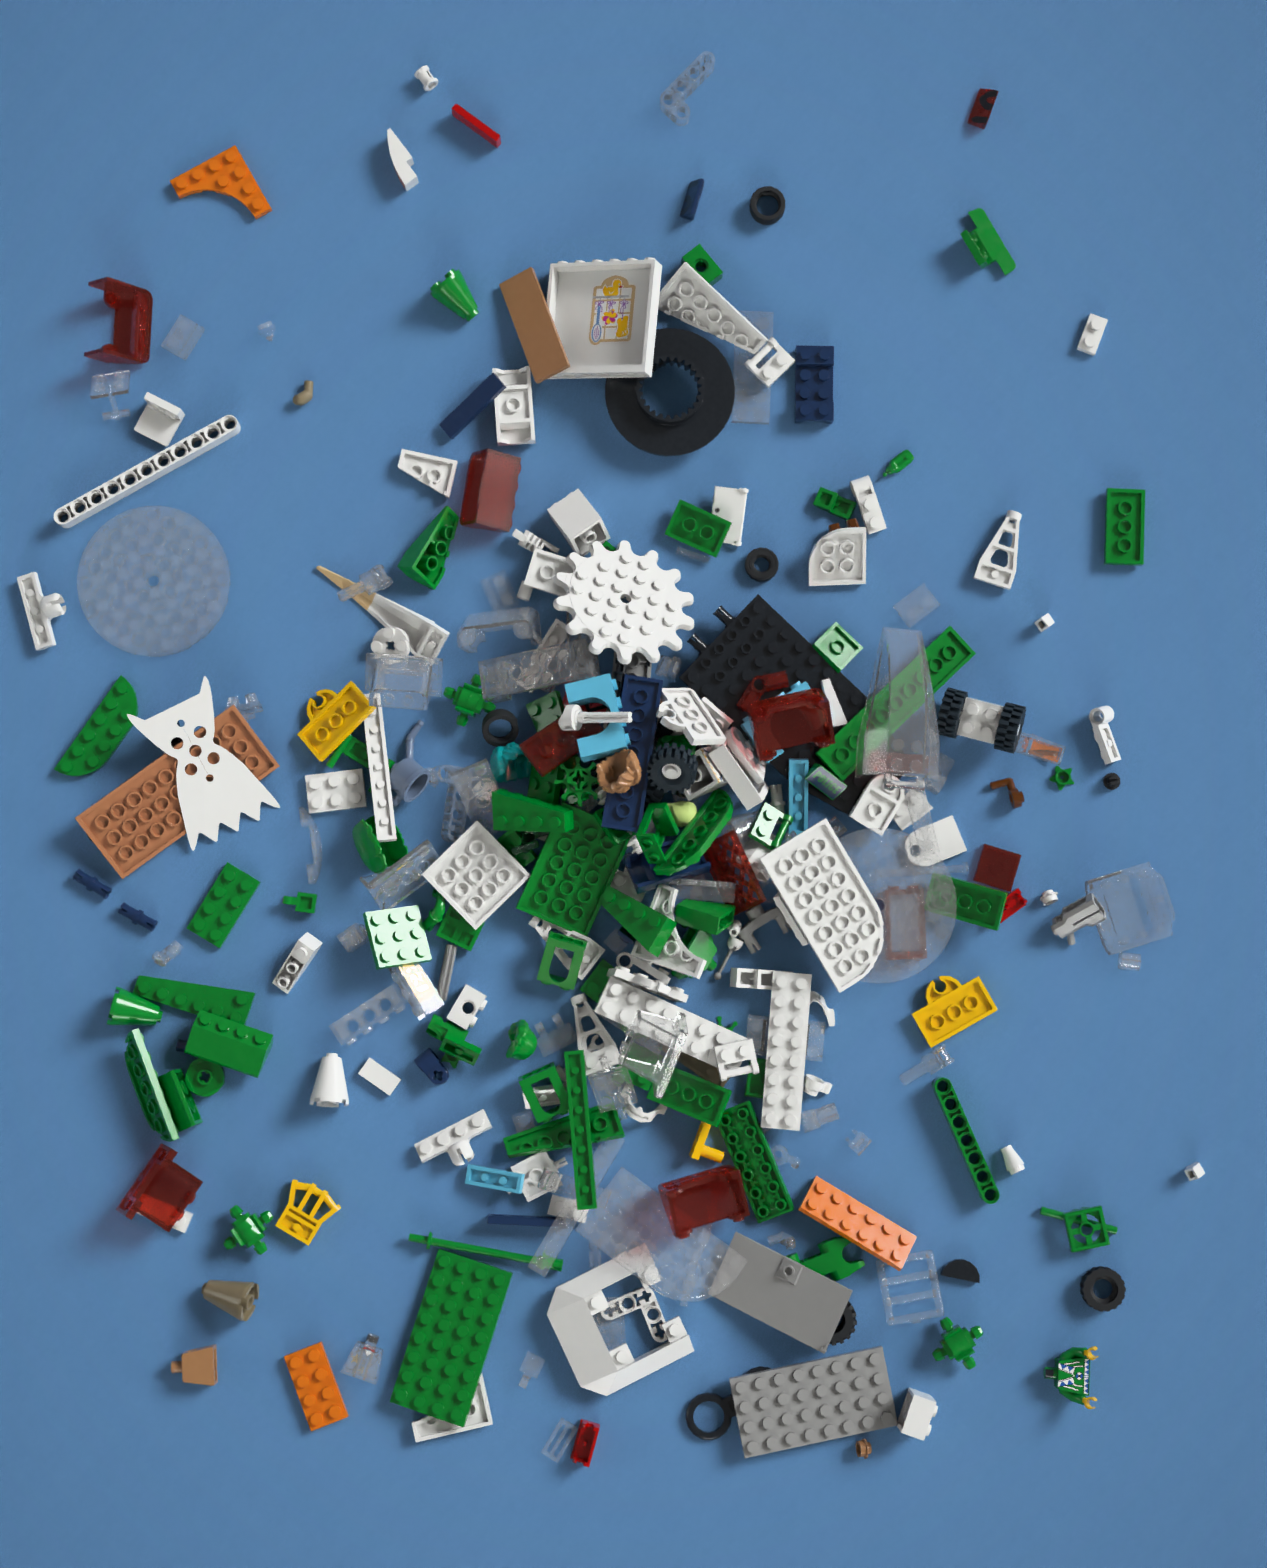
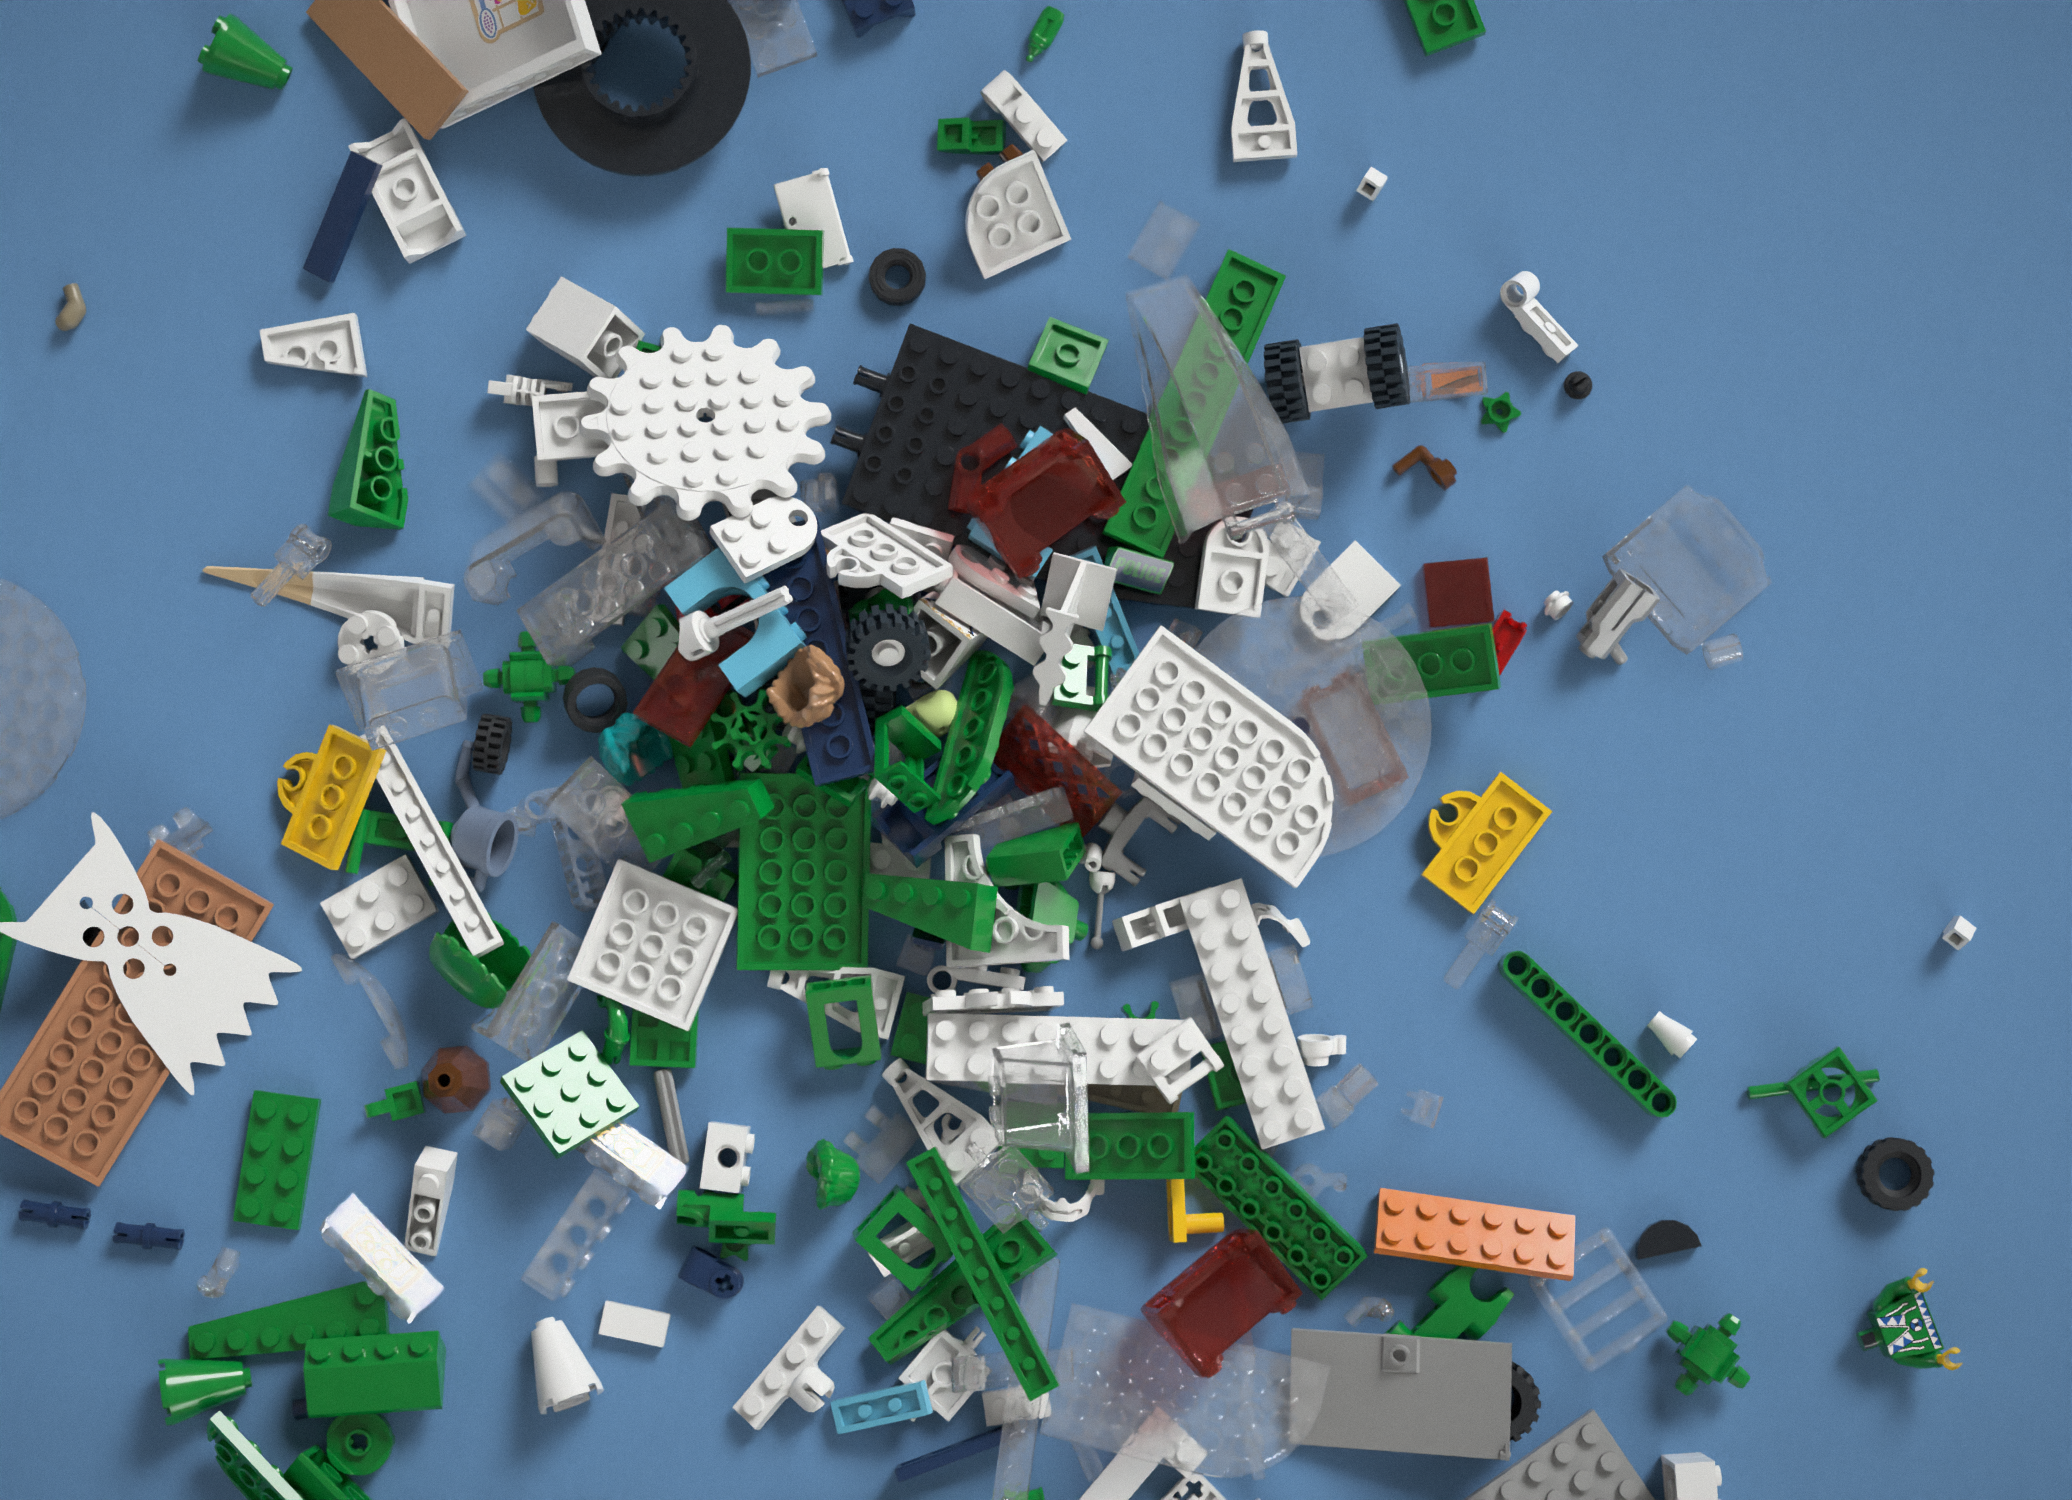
camera: 20 degrees left, 0 degrees up
(258, 983) = (380, 1259): none -> clear brick
(346, 902) = (468, 1079): none -> reddish brown cone
(434, 728) = (492, 744): none -> black tyre
(490, 490) = (426, 337): clear red windscreen -> none
(631, 679) = (765, 536): none -> white plate
(785, 781) = (1074, 594): none -> white piece

